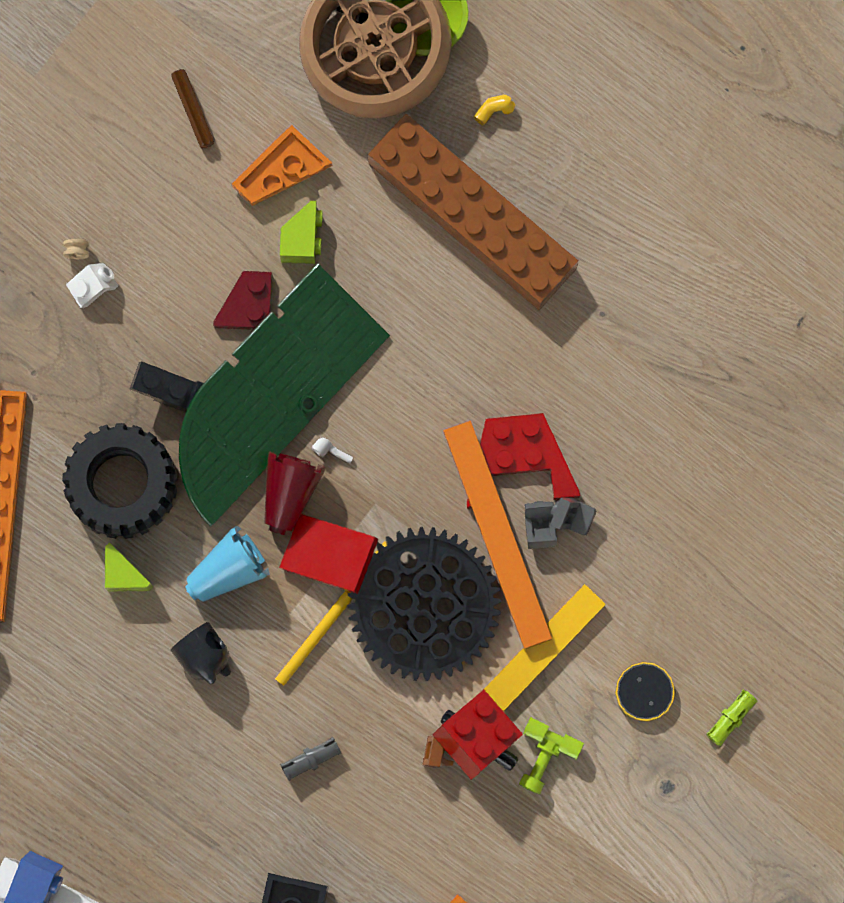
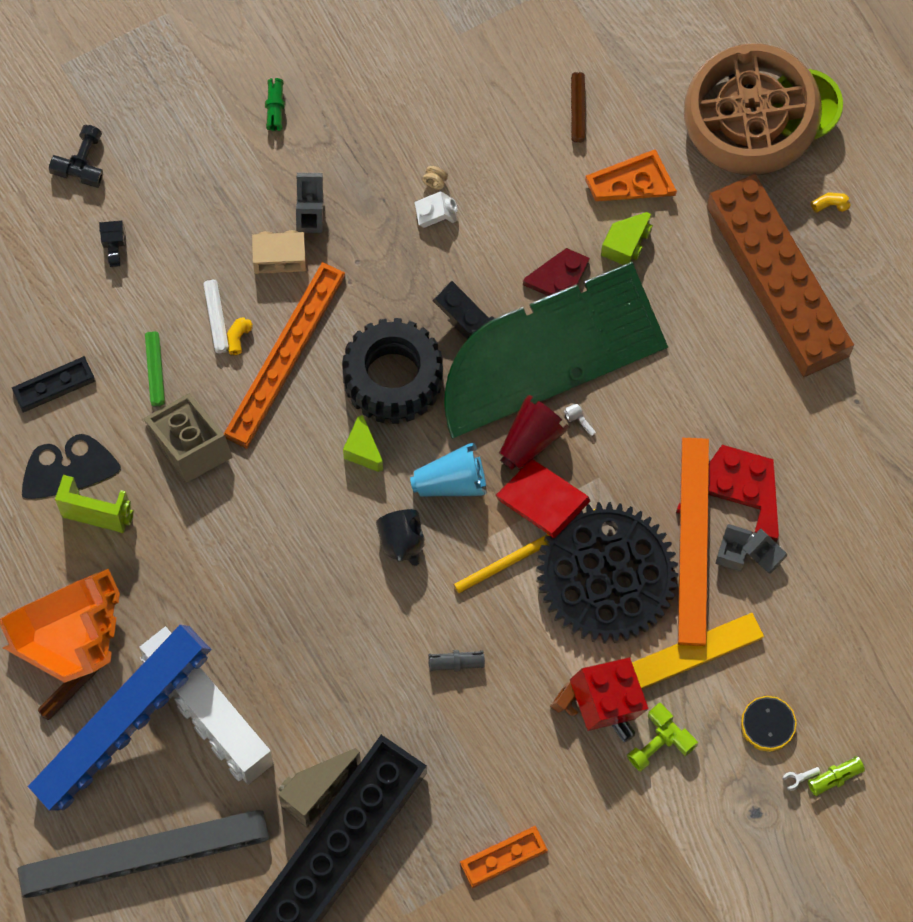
camera: 20 degrees right, 10 degrees down
(697, 733) = (800, 777): none -> white hand

